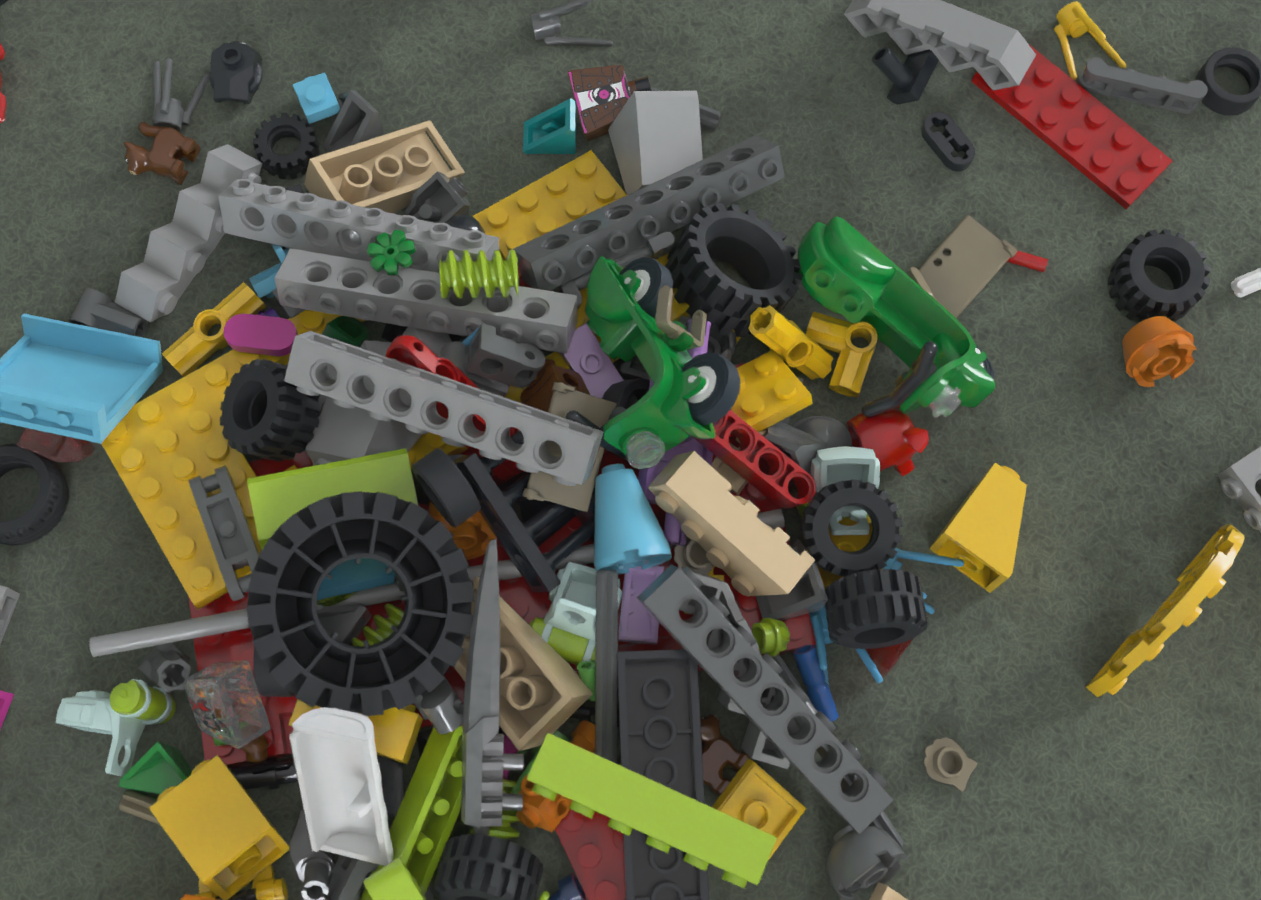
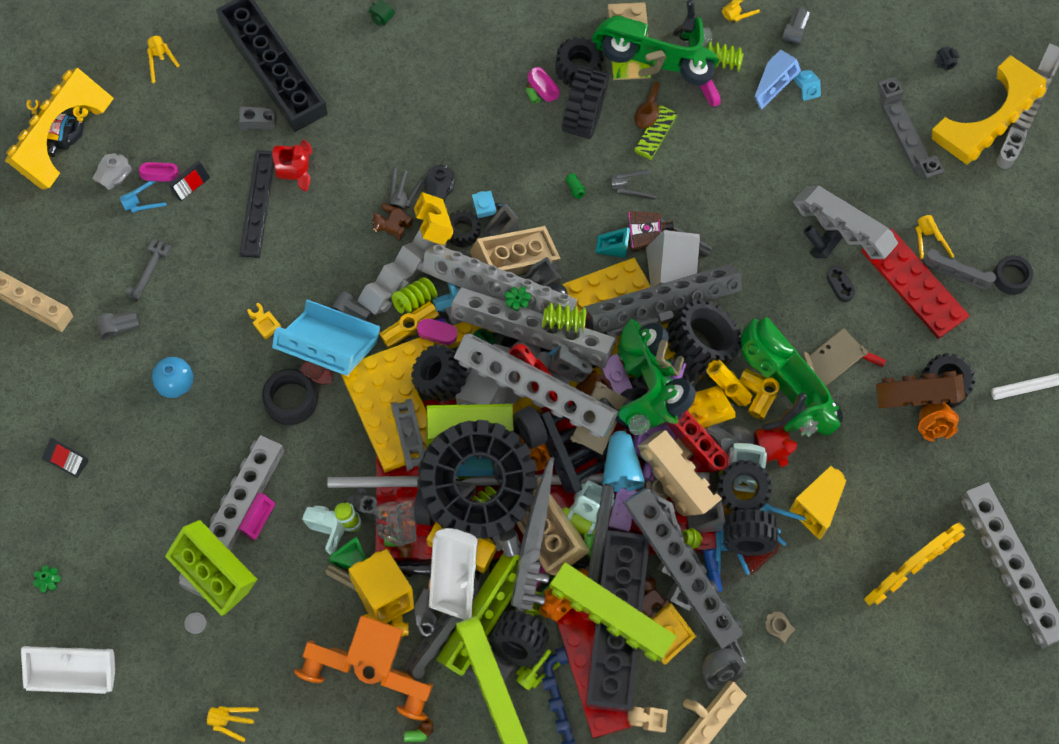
camera: 10 degrees right, 5 degrees down
(214, 273) = (414, 295): none -> lime piece
(231, 137) = (436, 221): none -> yellow arch
(471, 44) = (577, 189): none -> green pin
(1123, 302) = (920, 390): none -> reddish brown wedge

